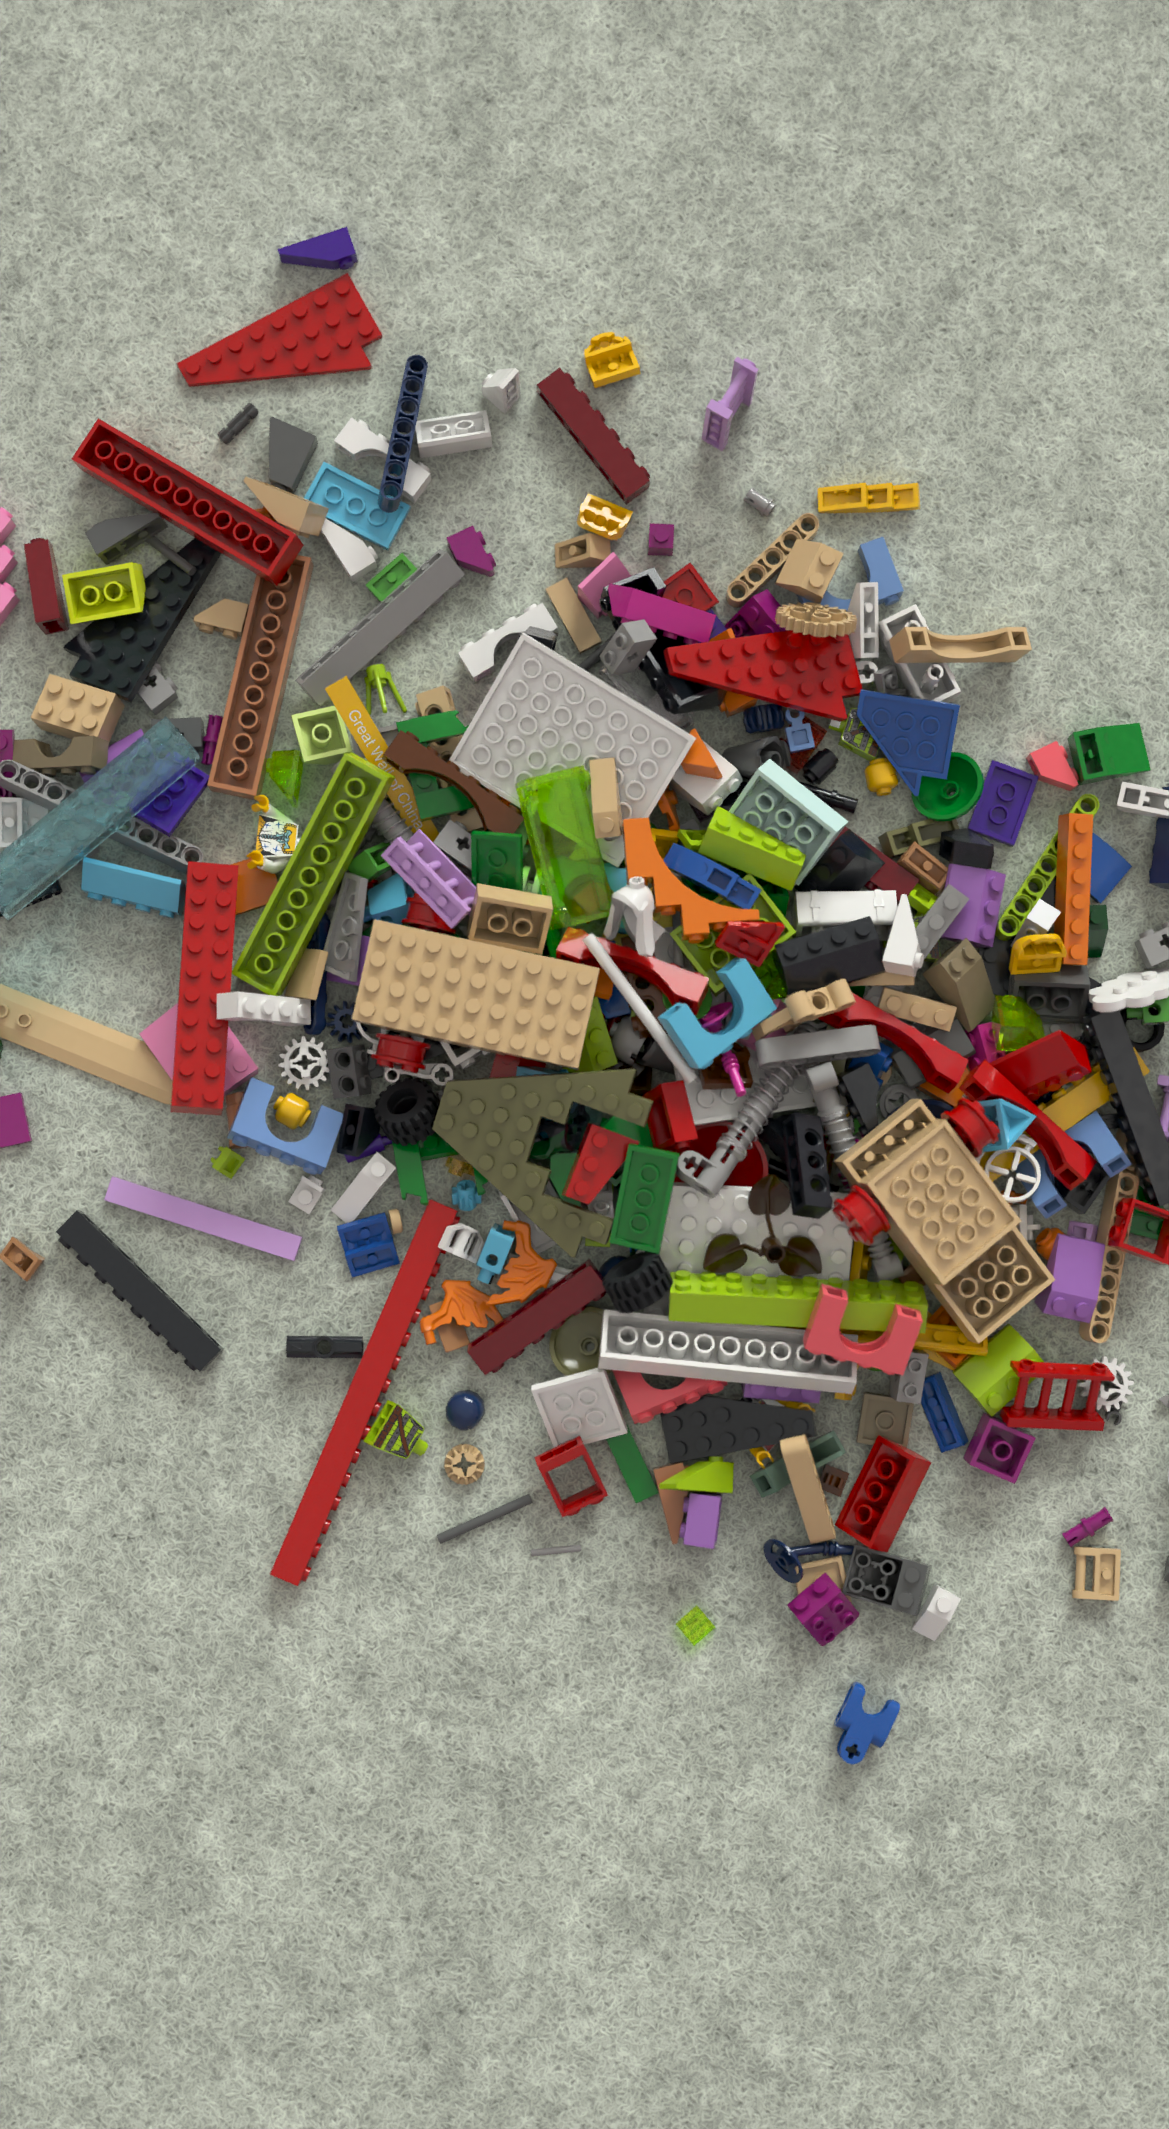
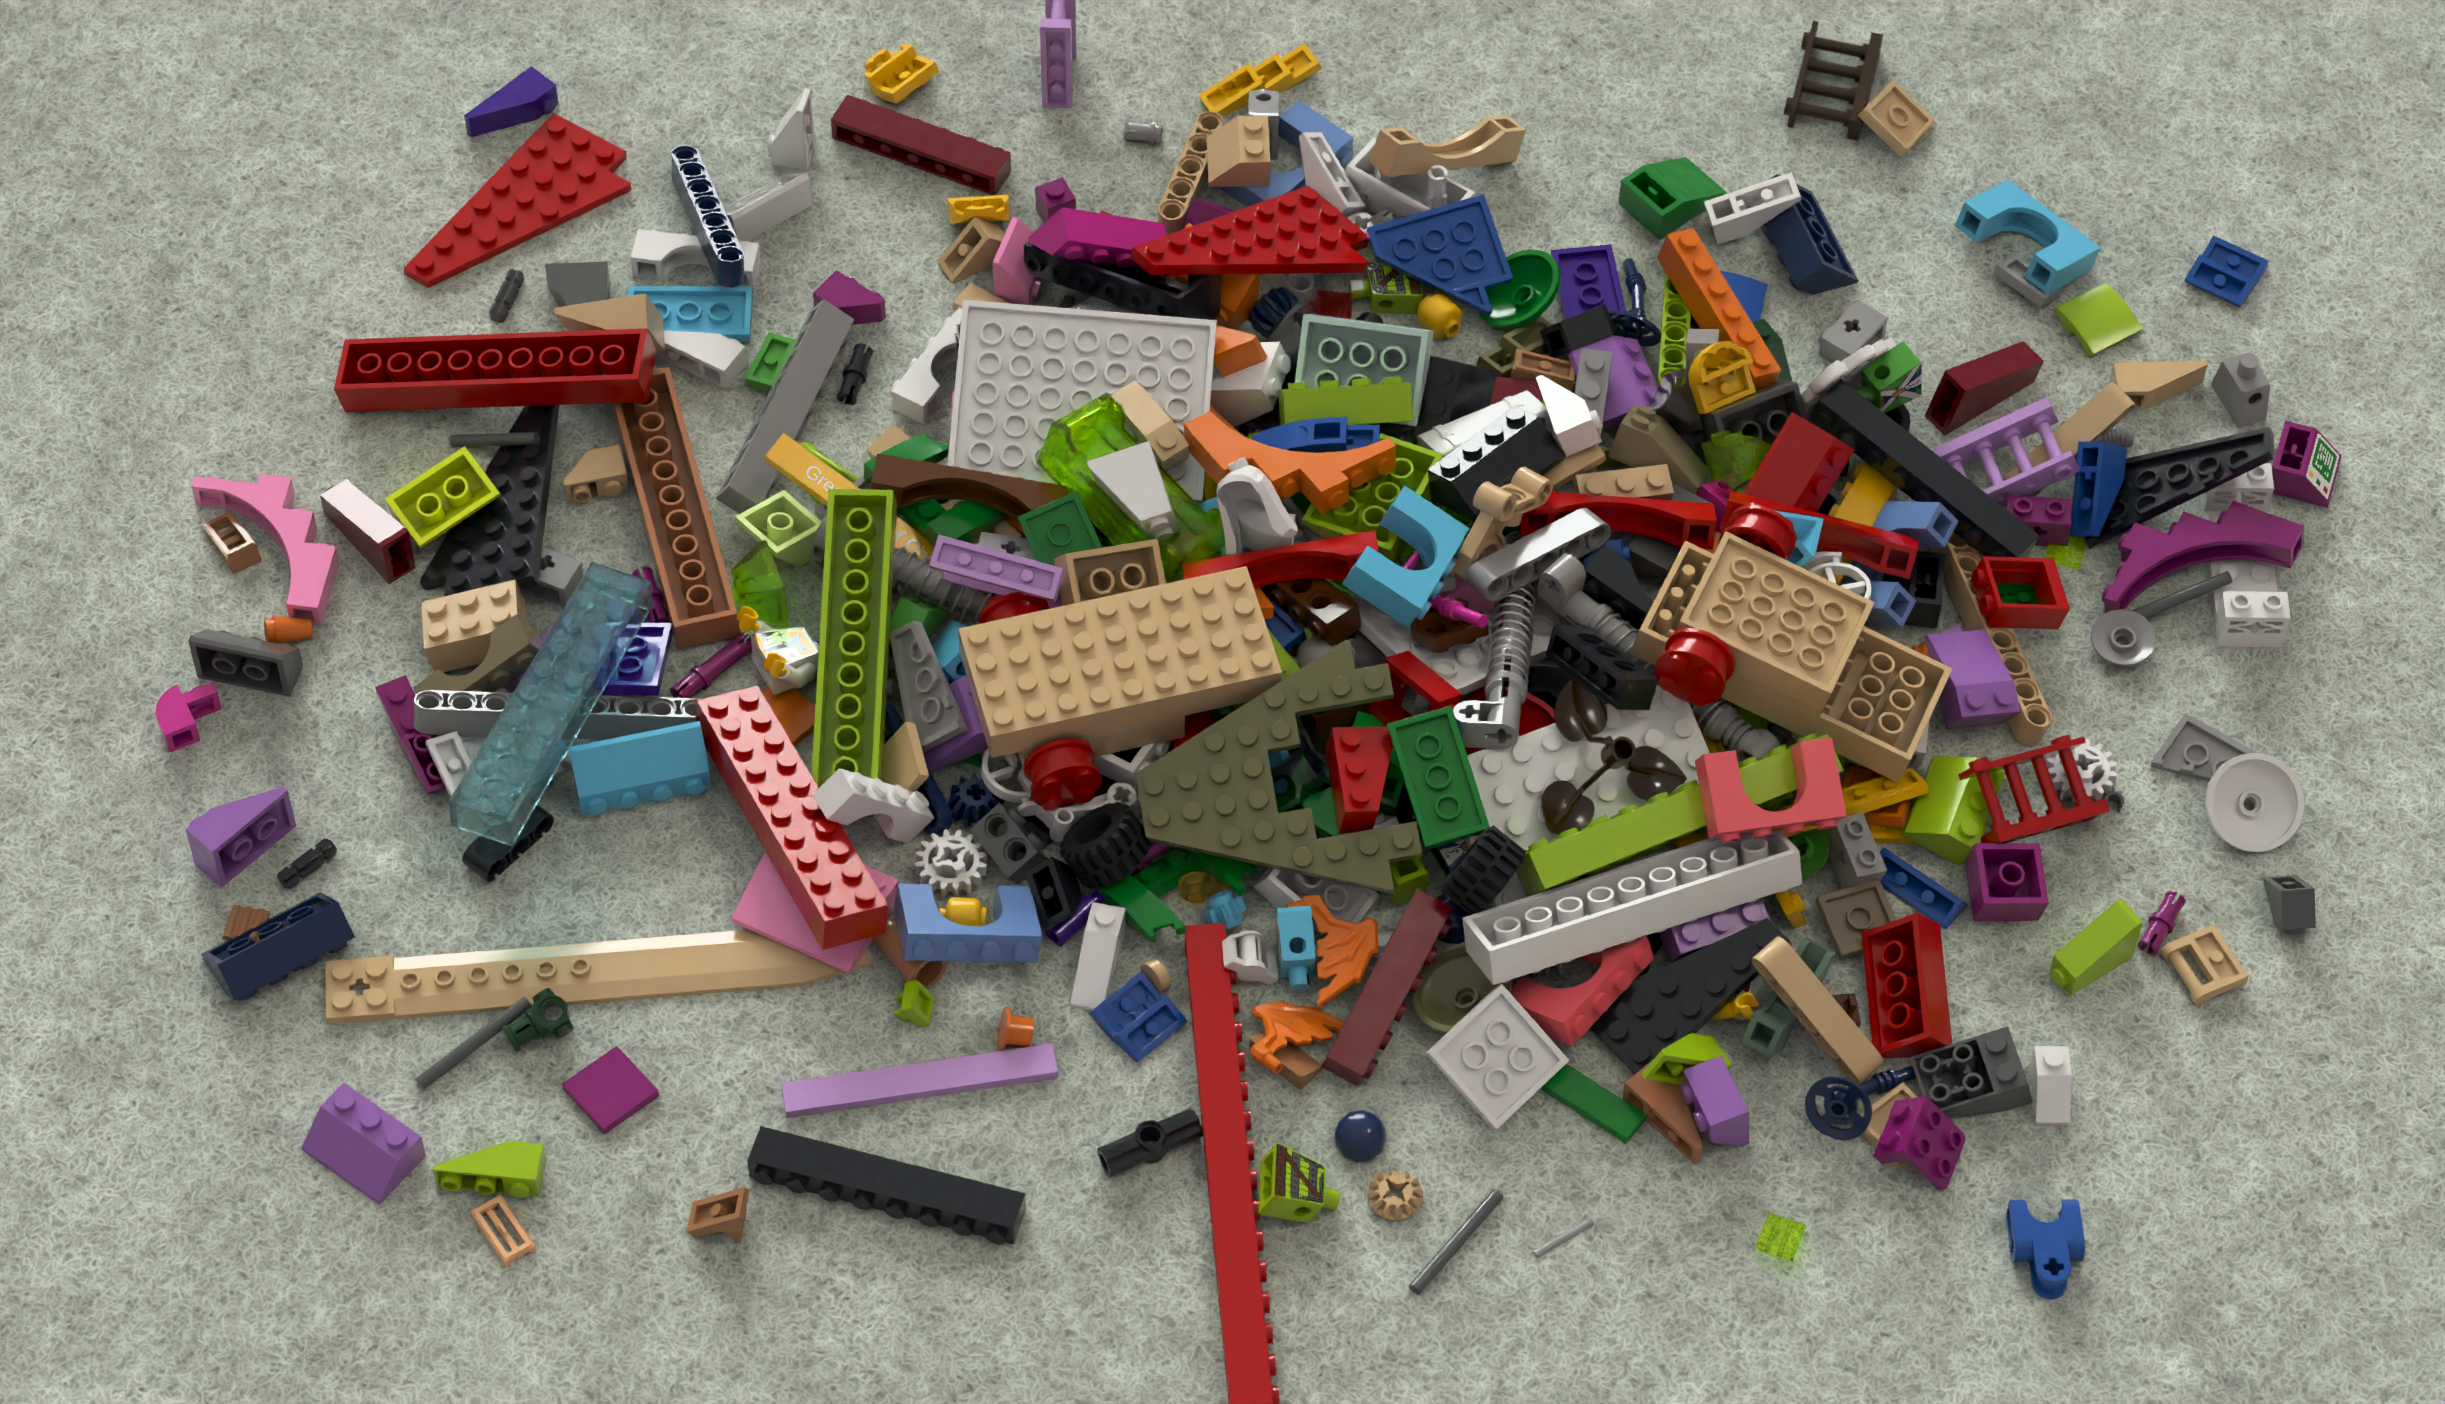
camera: 25 degrees left, 30 degrees down
(120, 535) = (434, 438): dark grey slope -> none
(223, 821) = (703, 675): none -> magenta pin
(281, 1216) = (1014, 1030): none -> orange piece
(307, 1193) = (1033, 993): white bracket -> none
(445, 618) = (855, 374): none -> black pin
(560, 1455) = (1549, 1116): red window -> none
(564, 857) = (1137, 487): none -> white slope
(628, 647) = (1088, 272): light grey brick -> none
(639, 1008) = (1316, 597): white piece -> none
(749, 939) = (1392, 470): red wing -> none
(798, 735) = (1322, 301): medium blue plate -> none
(816, 619) = (1277, 179): tan gear -> none
(850, 537) = (1266, 103): none -> light grey torso
(997, 950) = (1676, 403): none -> clear smoke slope
(1026, 1531) = (2097, 948): none -> lime slope
(1033, 826) = (1635, 318): none -> dark blue dish
(1052, 766) = (1622, 230): coral slope -> none

